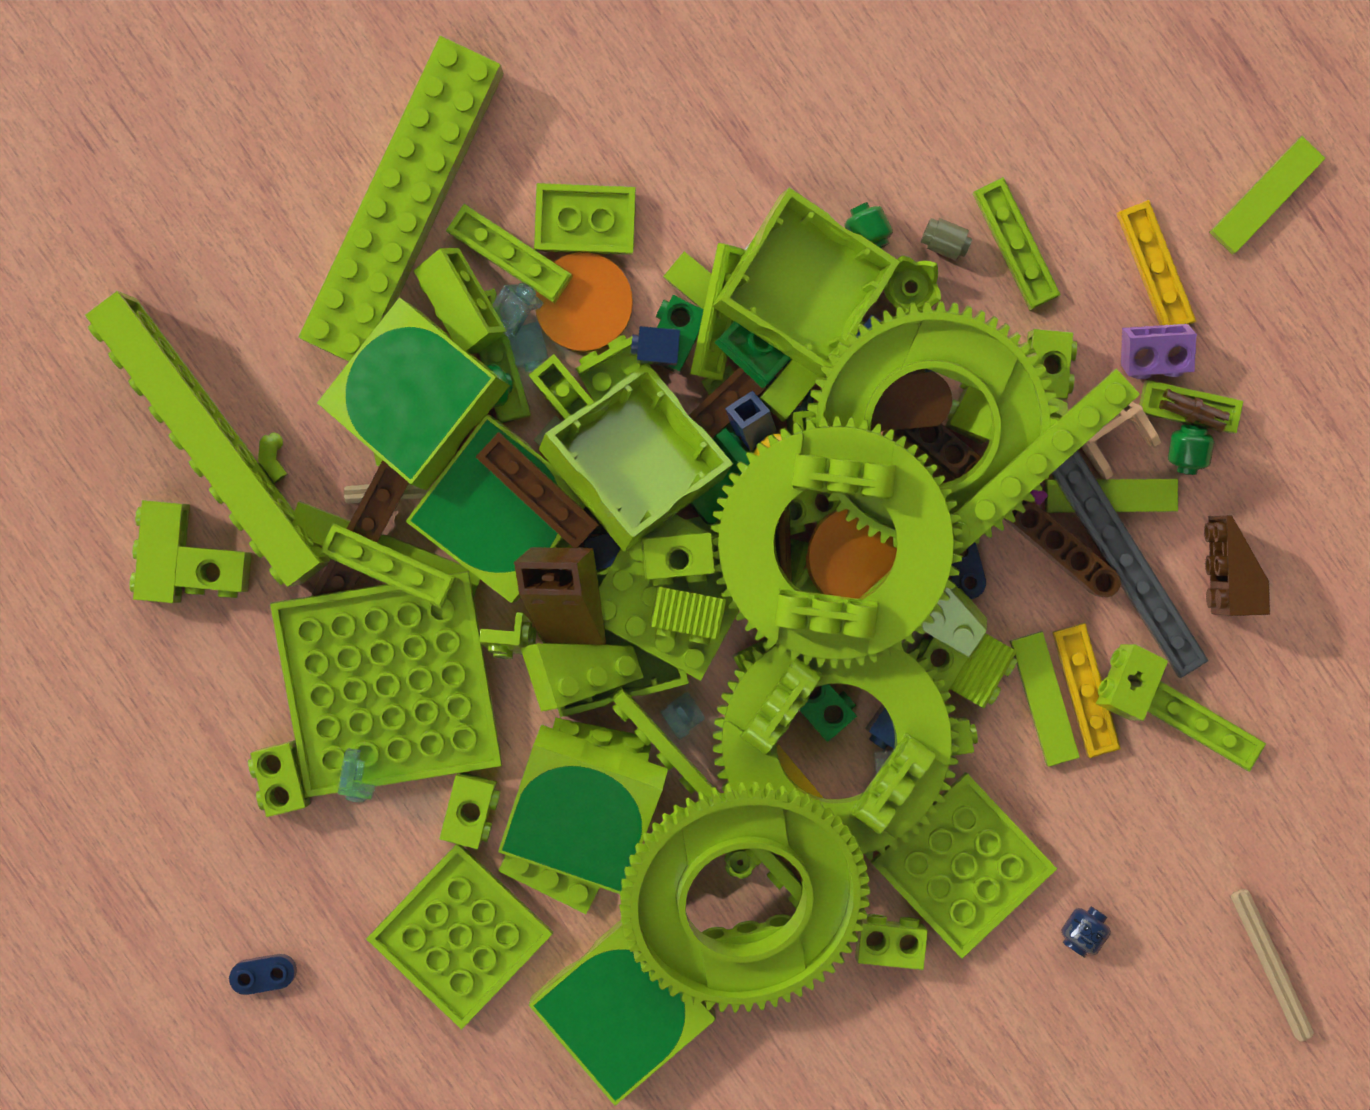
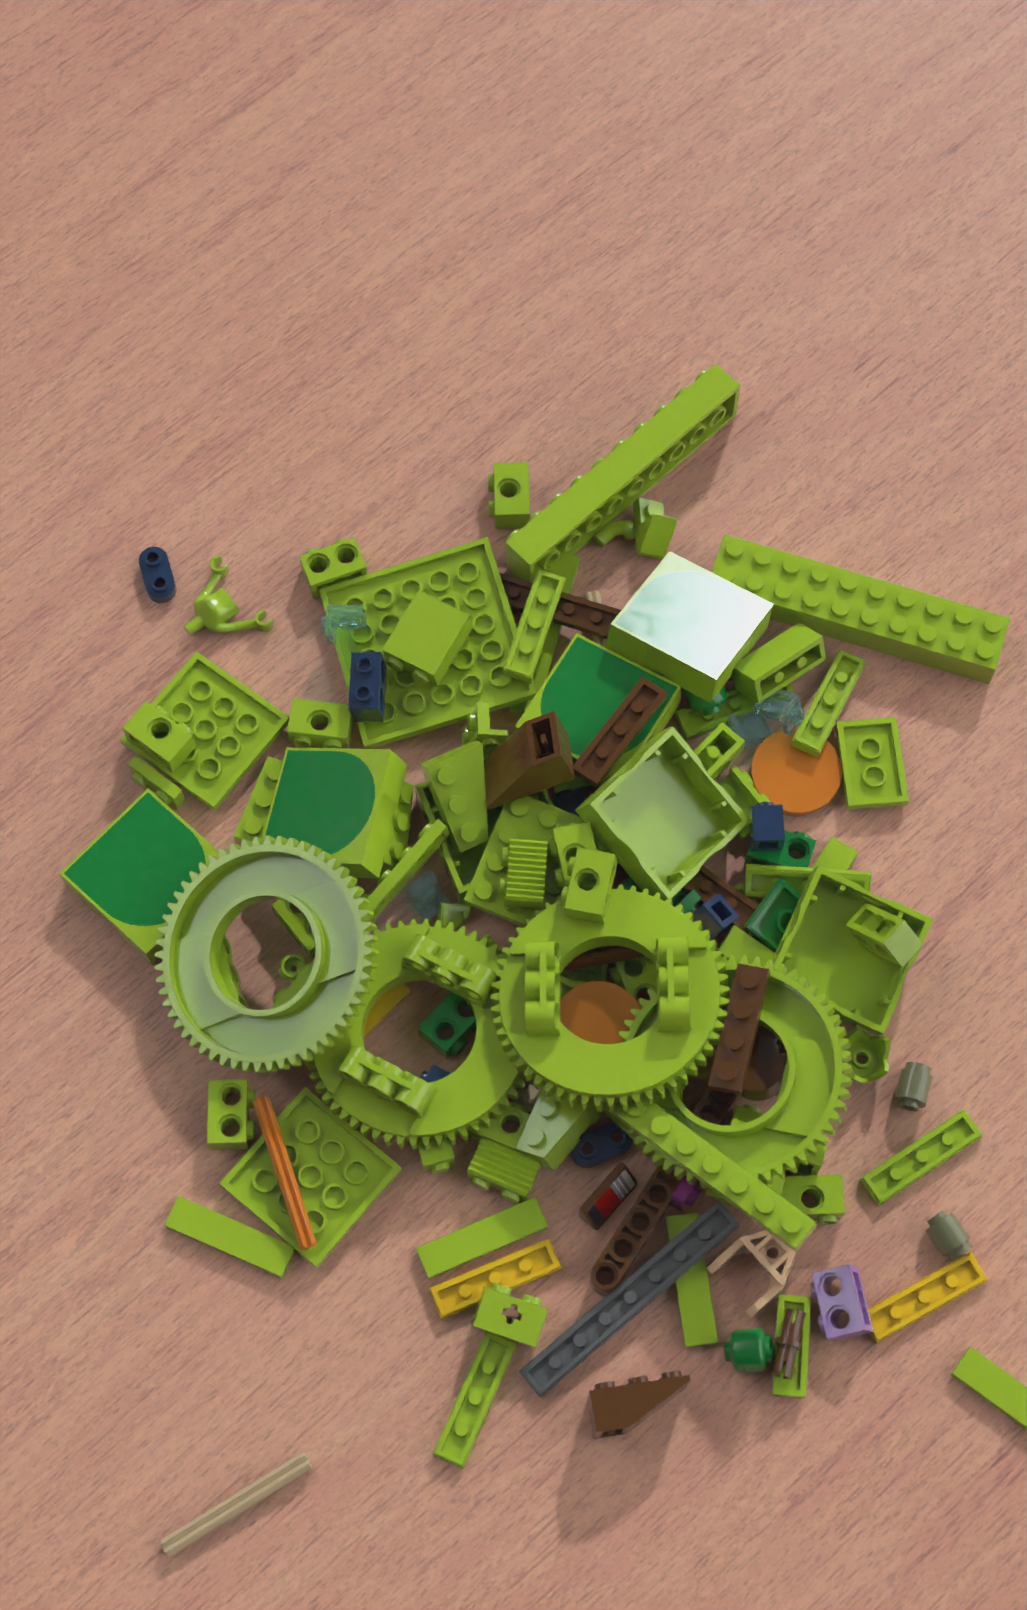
camera: 85 degrees right, 20 degrees down
(156, 550) = (541, 450): lime brick -> none
(275, 417) = (652, 528): none -> lime slope
(314, 910) = (217, 608): none -> lime piece
(390, 687) = (427, 638): none -> lime brick
(438, 757) = (367, 687): none -> dark blue brick
(461, 1006) = (168, 751): none -> lime brick
(507, 1003) = (147, 776): none -> lime plate
(703, 693) = (452, 913): none -> lime tile
(706, 534) = (590, 904): none -> lime brick
(802, 242) = (884, 934): none -> lime brick
(870, 223) = (911, 1014): green head -> none
(893, 413) = (739, 1029): none -> reddish brown plate
(961, 893) = (284, 1173): none -> orange axle
(1012, 952) = (230, 1237): none -> lime tile
(1019, 568) = (608, 1196): none -> slope
(1085, 931) = (255, 1304): dark blue head -> none
(1101, 231) = (948, 1235): none -> olive brick

